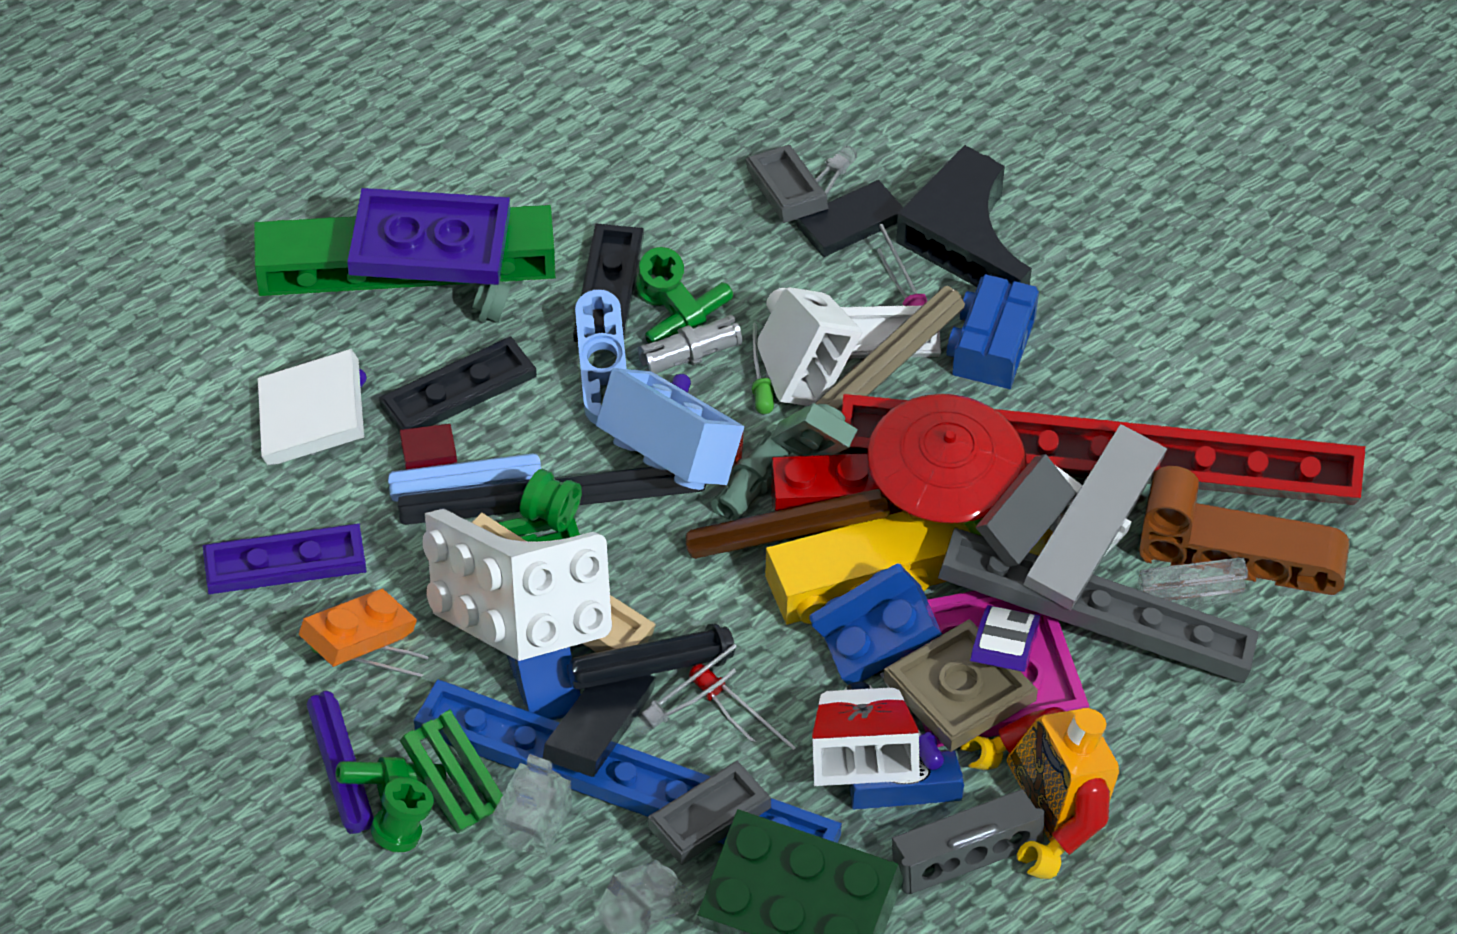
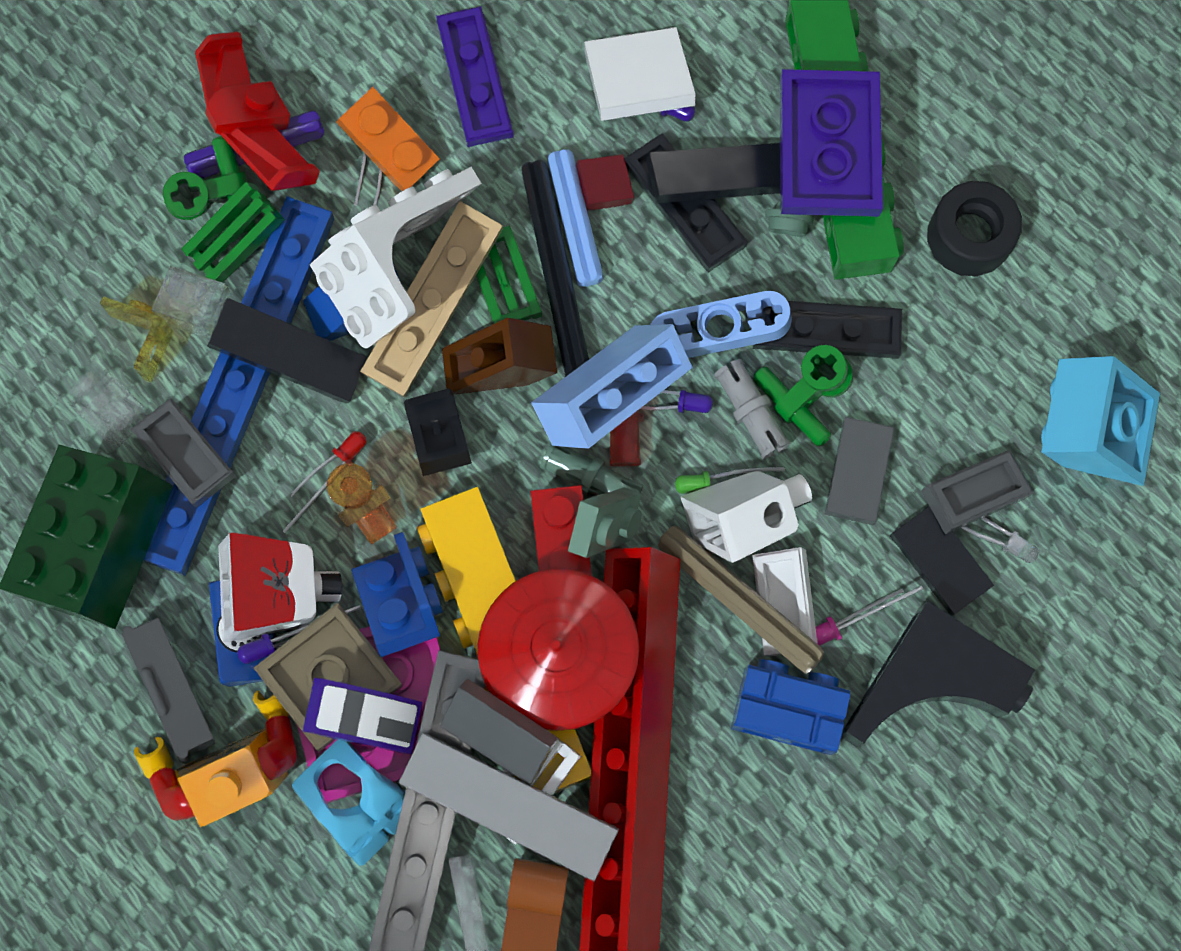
camera: 85 degrees right, 25 degrees up
(311, 746) = (249, 114): none -> red plate
(434, 347) = (715, 172): none -> black tile
(526, 179) = (972, 257): none -> black tyre
(550, 500) = (527, 287): green wheel -> none
(560, 845) = (159, 333): none -> clear yellow bracket
(623, 521) = (500, 357): none -> reddish brown slope
(651, 657) = (356, 392): black axle -> none
(655, 713) = (313, 406): piece -> none
(701, 596) = (437, 432): none -> black bracket
(722, 91) = (1100, 419): none -> medium azure slope
(756, 268) = (859, 471): none -> dark grey tile
(781, 645) = (360, 501): none -> clear orange hips
(787, 523) = (515, 499): reddish brown axle -> none
(1107, 664) = (361, 828): none -> medium azure piece

